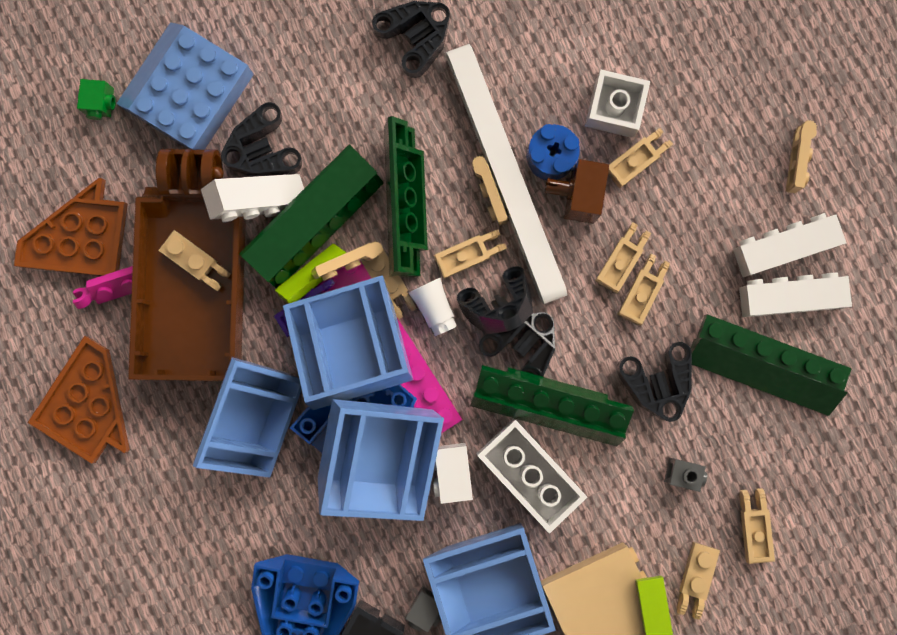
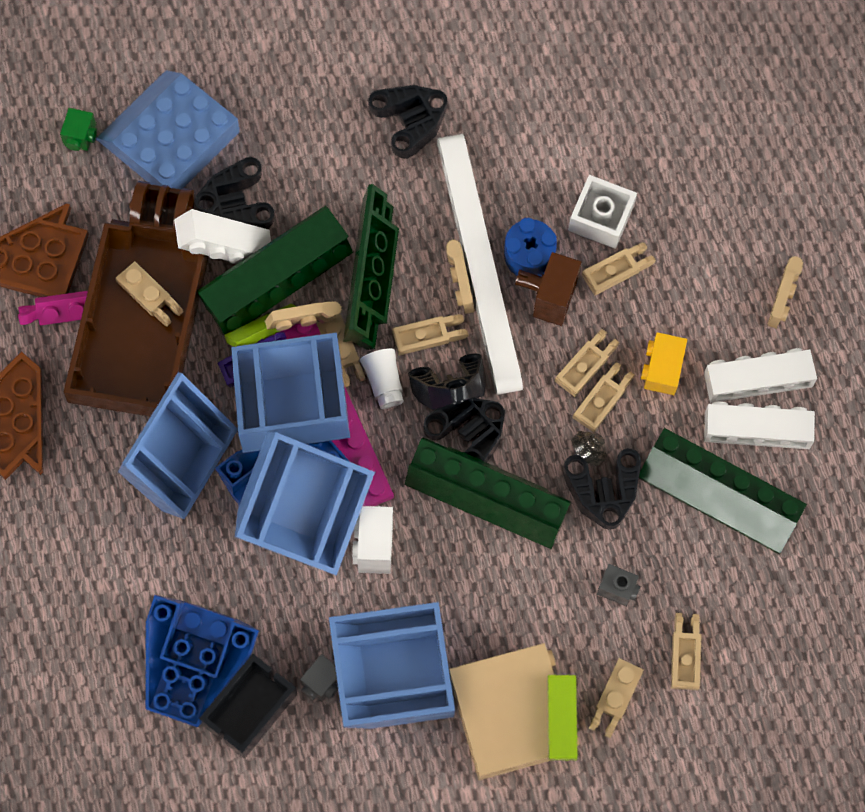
camera: 10 degrees right, 15 degrees down
(531, 475) = (455, 557): white brick -> none
(639, 345) = (590, 447): none -> clear smoke plate
(697, 248) = (665, 363): none -> yellow brick

